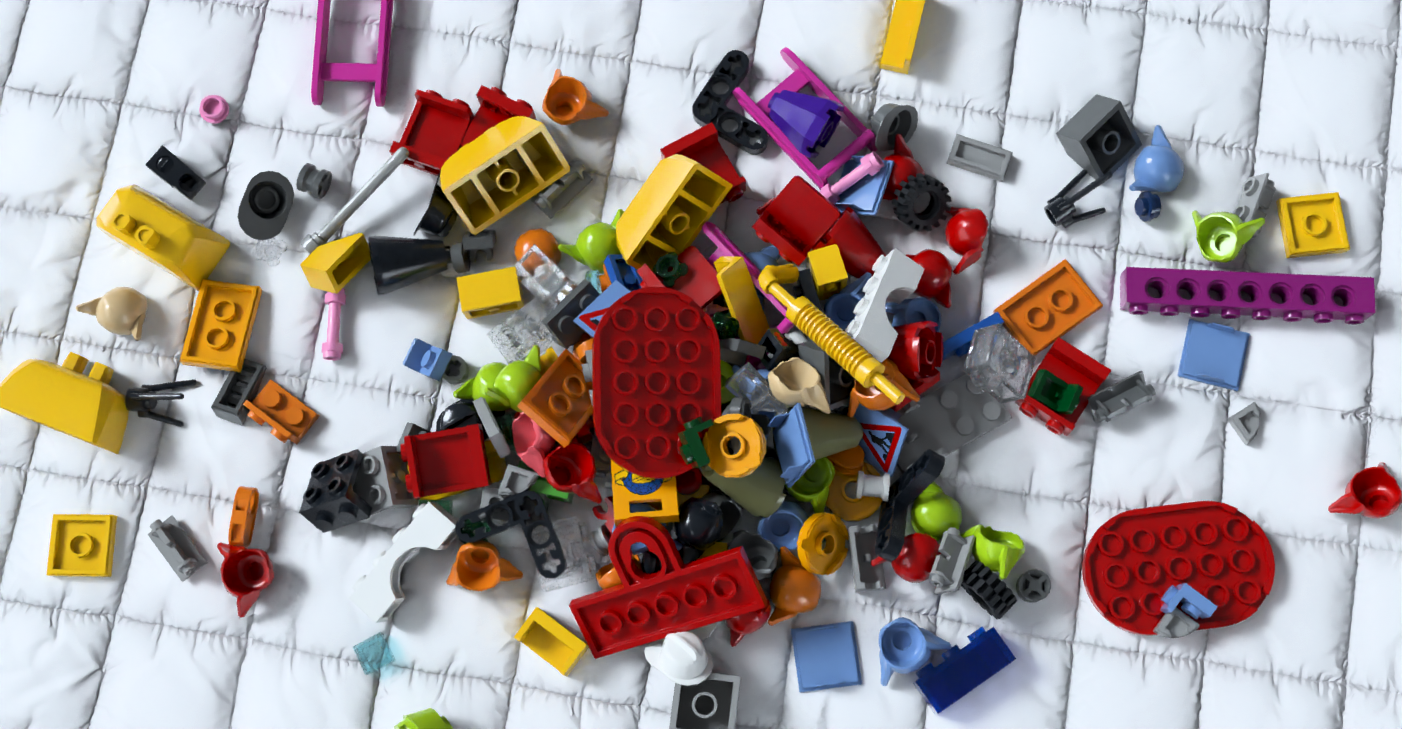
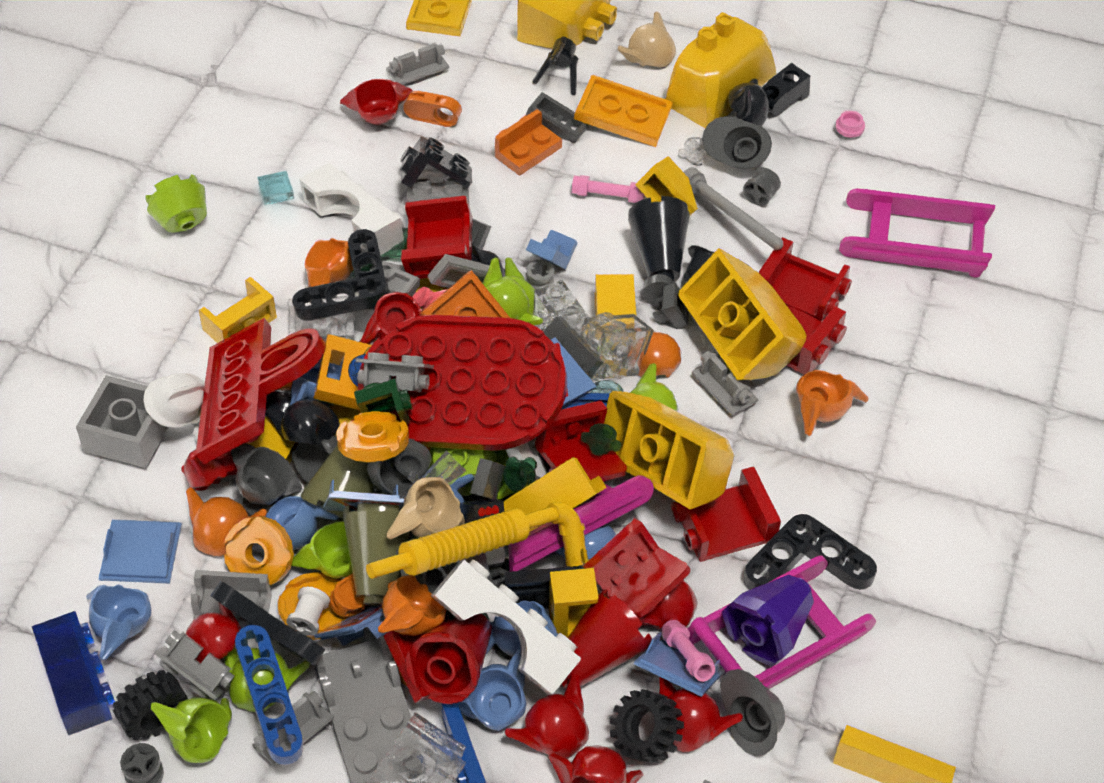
camera: 90 degrees right, 25 degrees down
(206, 200) = (750, 102): none -> black piece
(660, 426) = (408, 372): none -> light grey hinge
(965, 491) = (269, 693): none -> blue beam
(975, 476) = (310, 718): none -> light grey hinge

